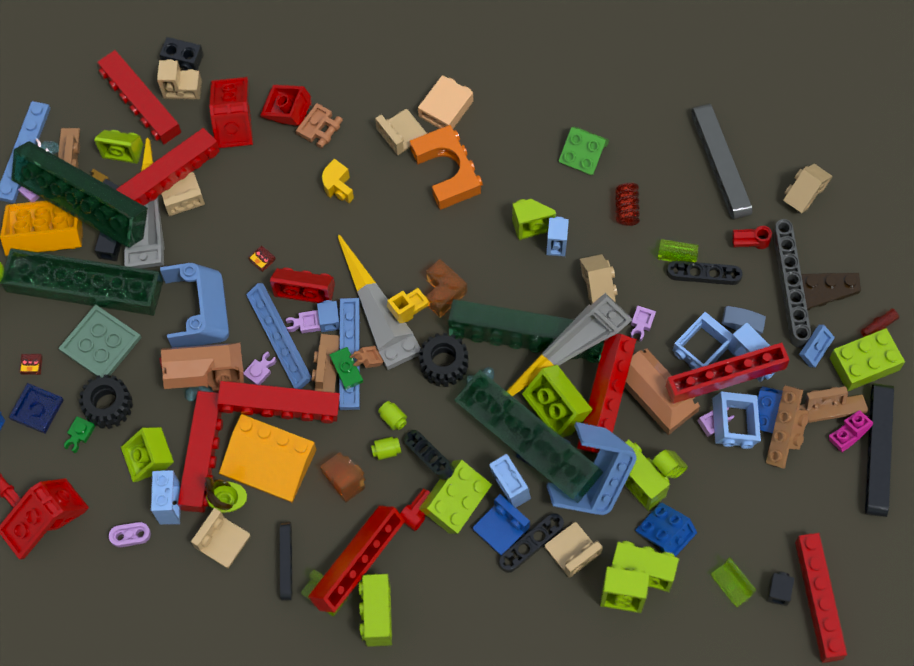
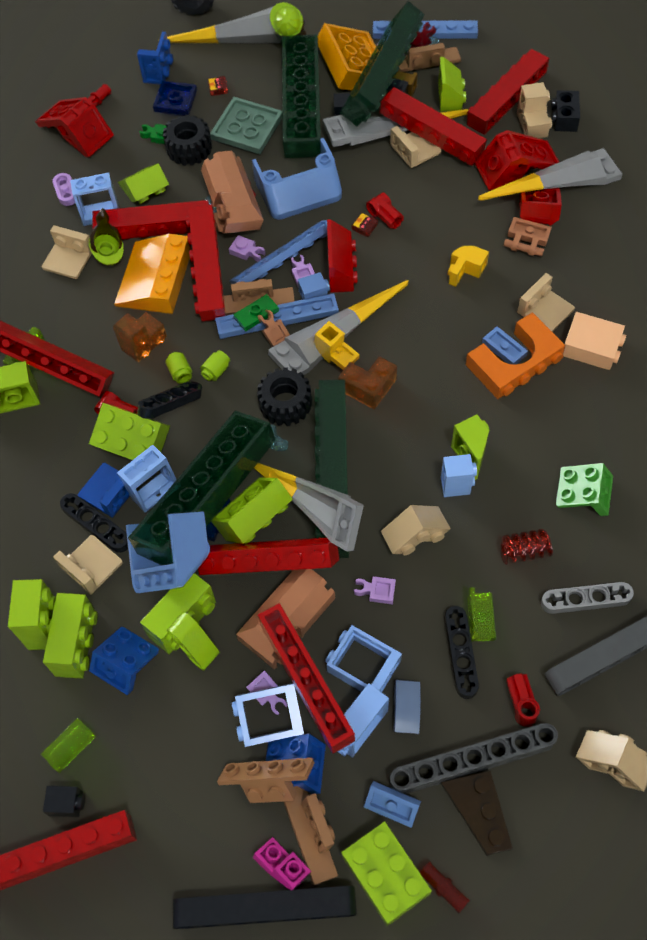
camera: 80 degrees right, 5 degrees down
(248, 238) = (383, 208): none -> red piece
(257, 59) = (580, 170): none -> light grey plate
(285, 561) = (28, 314): black beam -> none
(433, 173) = (504, 346): none -> medium blue plate
(676, 174) = (585, 593): none -> light grey beam

